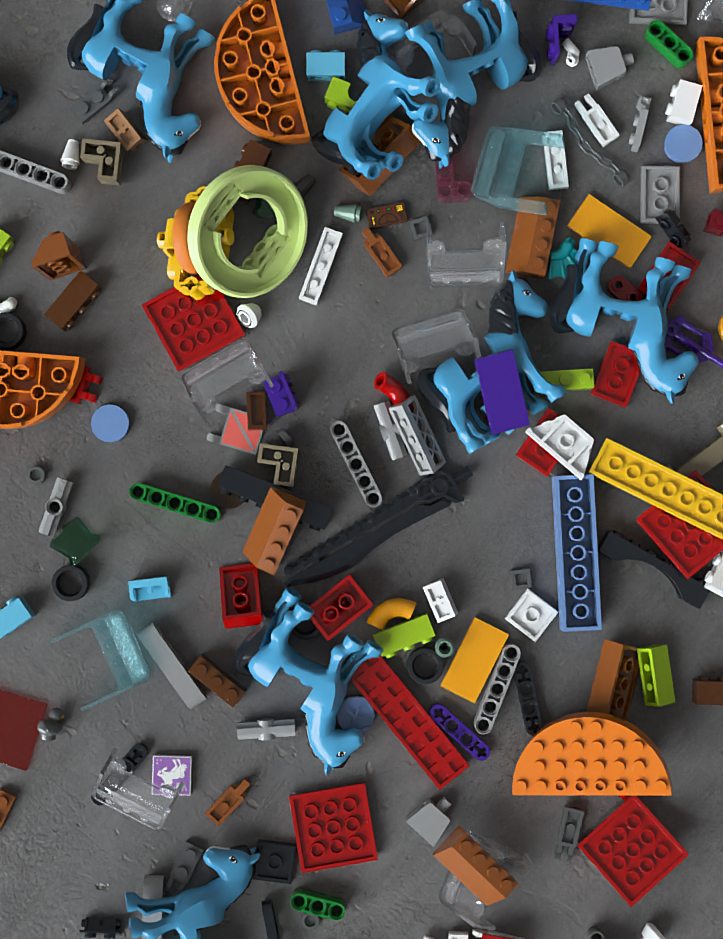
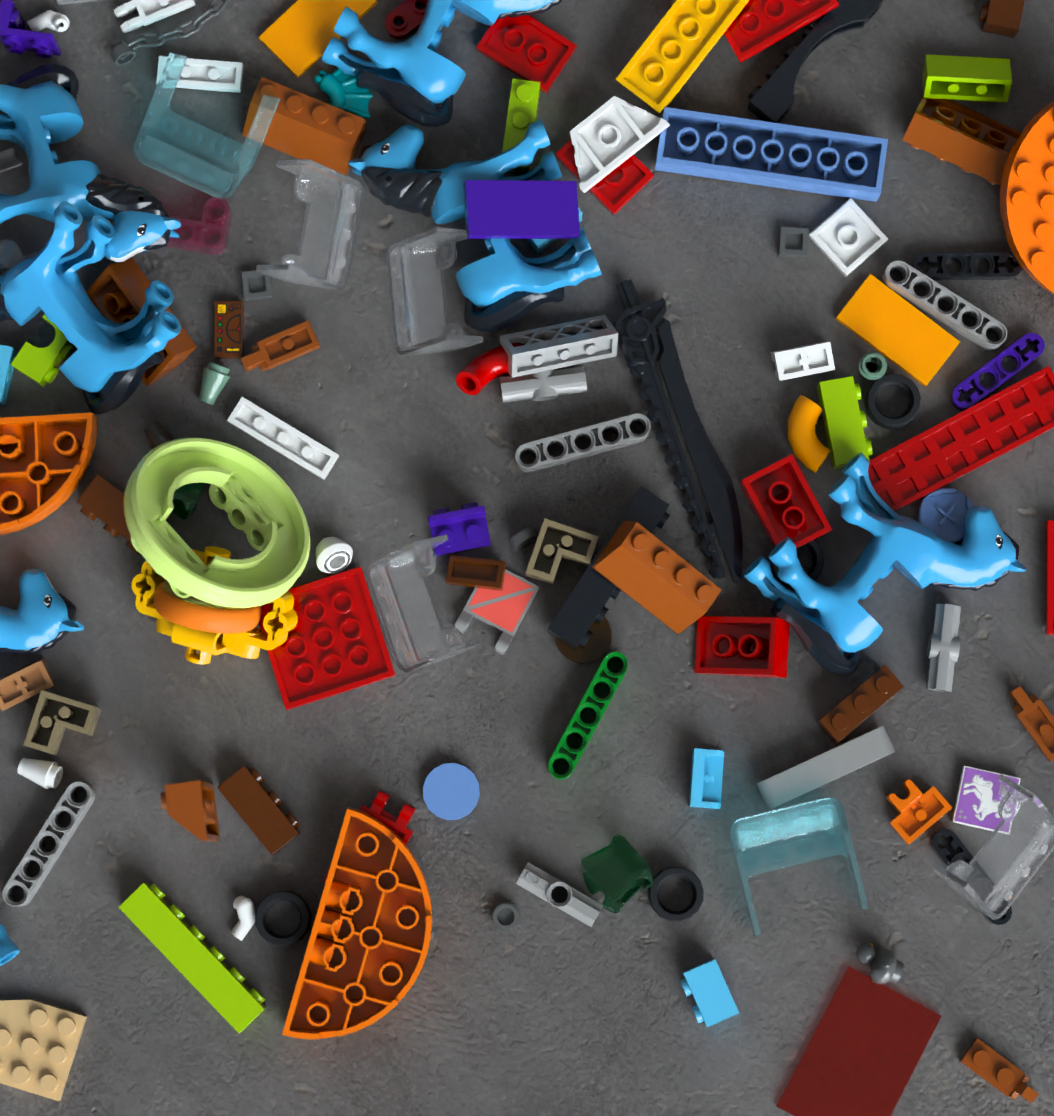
camera: 80 degrees left, 5 degrees down
(155, 731) = (916, 811): none -> orange plate

